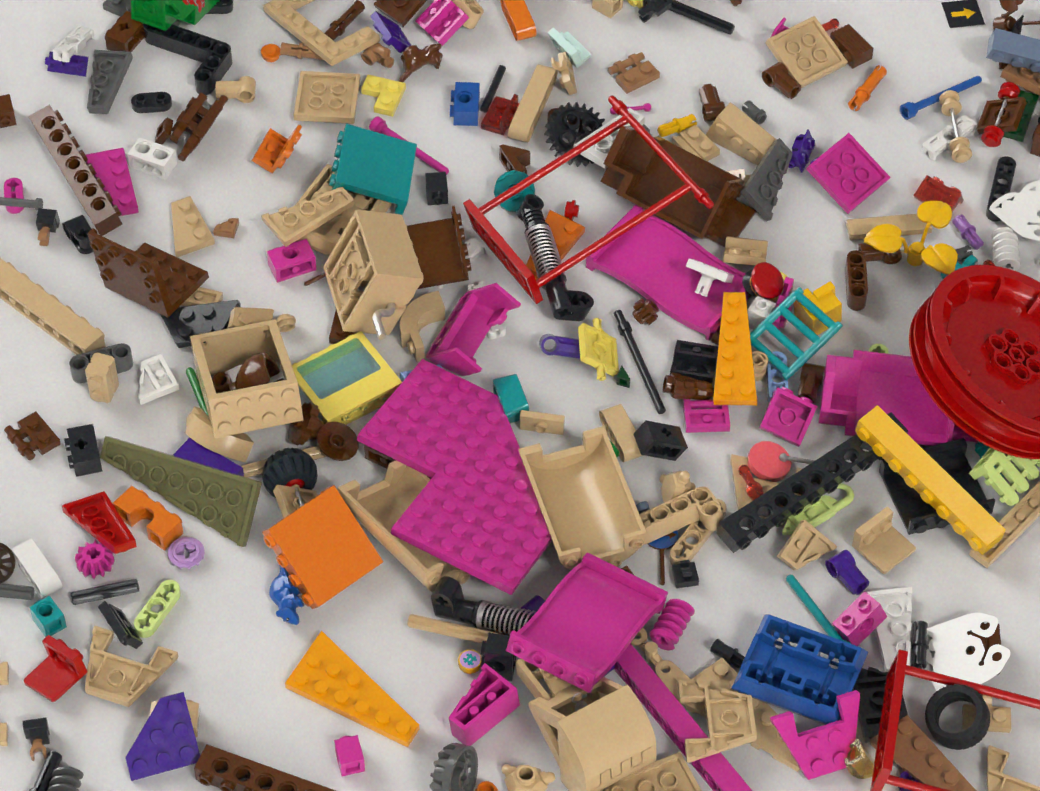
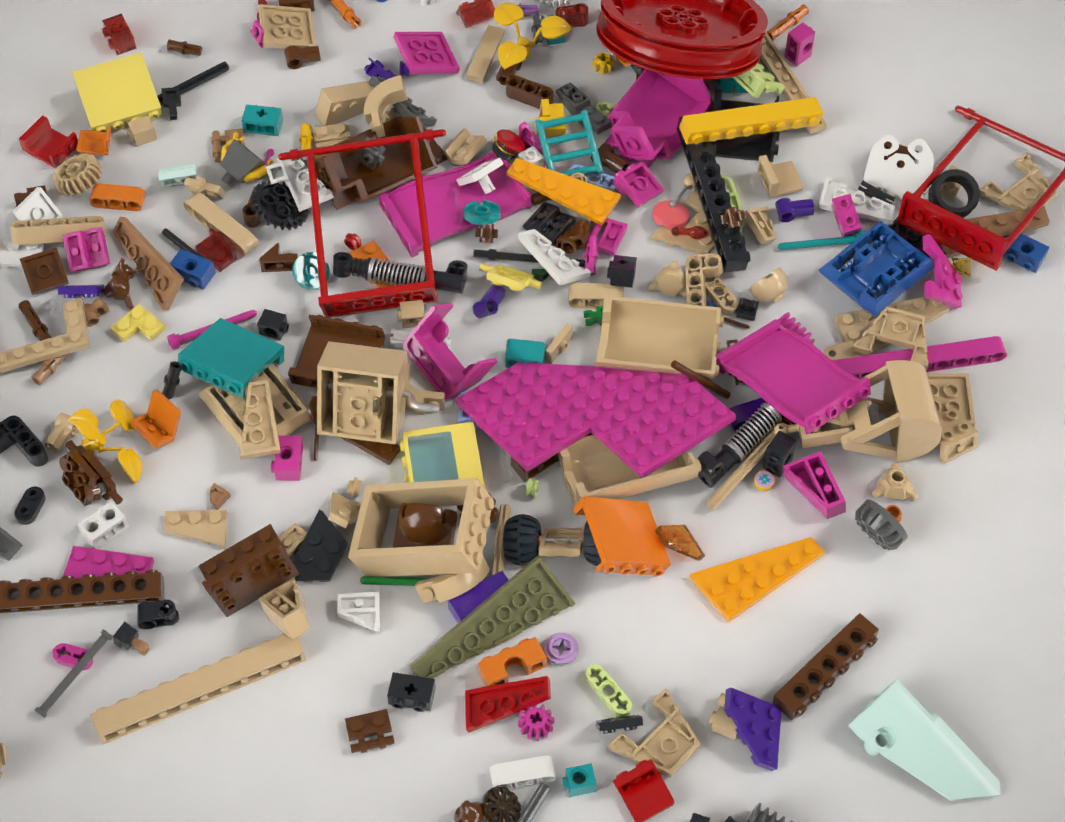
camera: 65 degrees left, 5 degrees up
(102, 377) = (344, 647): tan brick -> none
(104, 591) = (571, 727): black axle -> none
(120, 352) = (317, 637): dark grey beam -> none
(121, 318) = (286, 609): none -> tan wedge
(164, 131) = (77, 505): reddish brown tile -> none
(228, 91) = (88, 424): none -> yellow plant
(270, 52) = (33, 391): orange plate -> none
(285, 597) = (639, 588): blue animal -> none
(326, 137) = (172, 379): none -> black pin
(327, 97) = (116, 366): tan plate -> none
(342, 436) = (506, 492): reddish brown dish -> none
(349, 755) = (820, 595): dark pink brick -> none
(352, 605) = (680, 540): none -> clear orange wing
(356, 462) = (532, 487): none -> yellowish green bush
(453, 69) = (155, 268): none -> medium nougat wing
(512, 285) = (411, 313): none -> tan brick
(548, 543) = (700, 379): none -> reddish brown bar
(606, 114) = (277, 173): none -> white slope
(612, 80) = (241, 162): none -> dark grey torso
(640, 379) = (552, 259): none -> white wing
(663, 294) = (482, 213): none -> teal tile
(668, 408) = (591, 254): none -> dark pink pin
(671, 180) = (371, 156): none -> flat silver brick
(678, 82) = (262, 120): none -> teal brick
(710, 102) = (302, 109): reddish brown piece -> none
(720, 580) = (770, 287): none -> tan cylinder
(726, 652) = (835, 309): black axle -> none
(743, 153) = (380, 99): none -> tan arch
(757, 115) = (322, 84): dark grey pin -> none
(774, 502) = (733, 217): none -> reddish brown gear
(866, 330) = (577, 101): none -> dark grey slope

